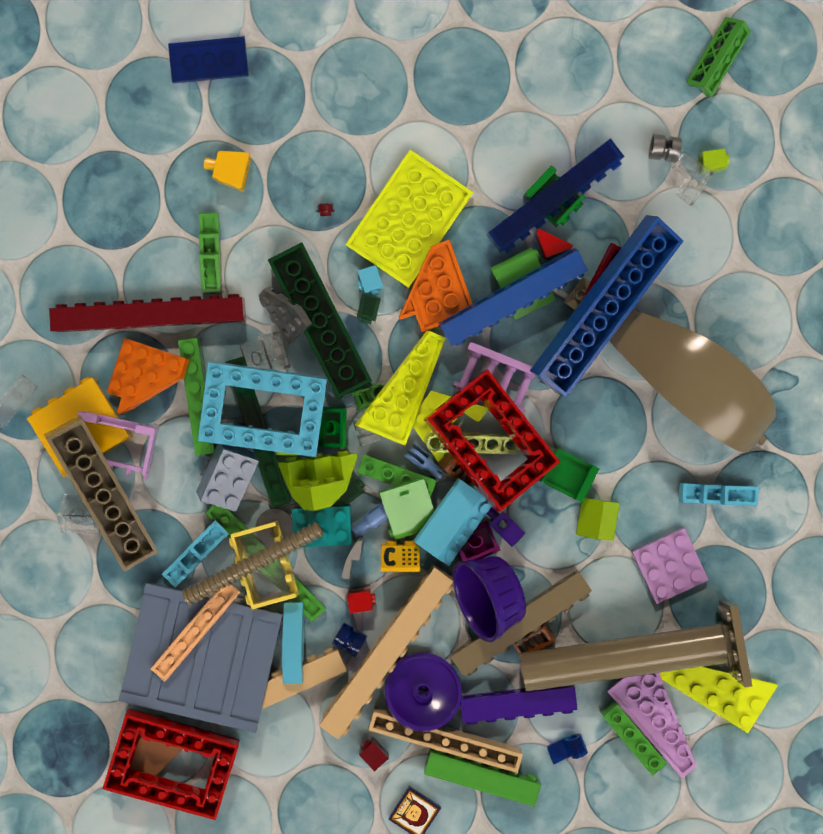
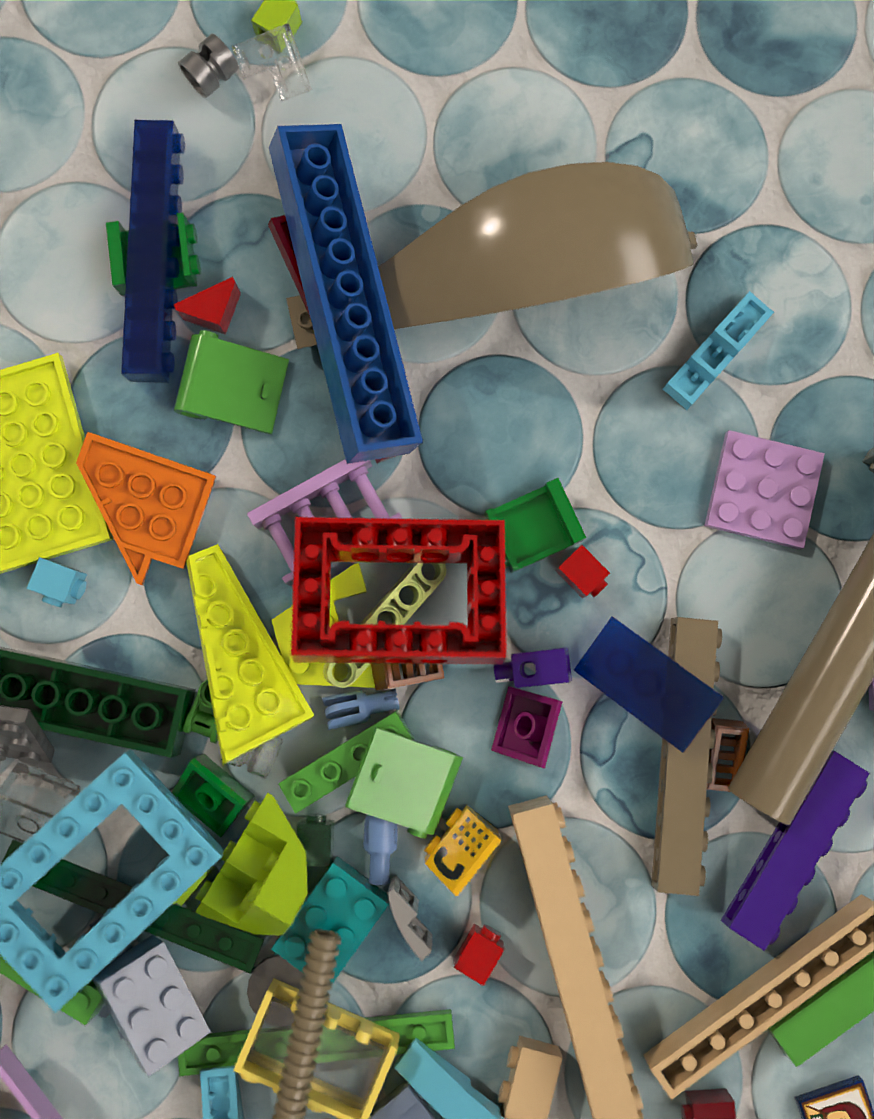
camera: 45 degrees left, 5 degrees down
(349, 639) = (520, 1015): clear blue wheel -> none
(368, 309) = (92, 615): clear green brick -> none
(423, 692) = (677, 973): dark purple dish -> none
(453, 522) = (471, 736): medium azure slope -> none
(489, 596) = (615, 769): dark purple piece -> none
(513, 297) = (234, 408): blue brick -> none
(539, 580) = (649, 684): none -> clear blue tile
(565, 513) = (583, 573): none -> red brick
(597, 519) = (625, 535): lime slope -> none

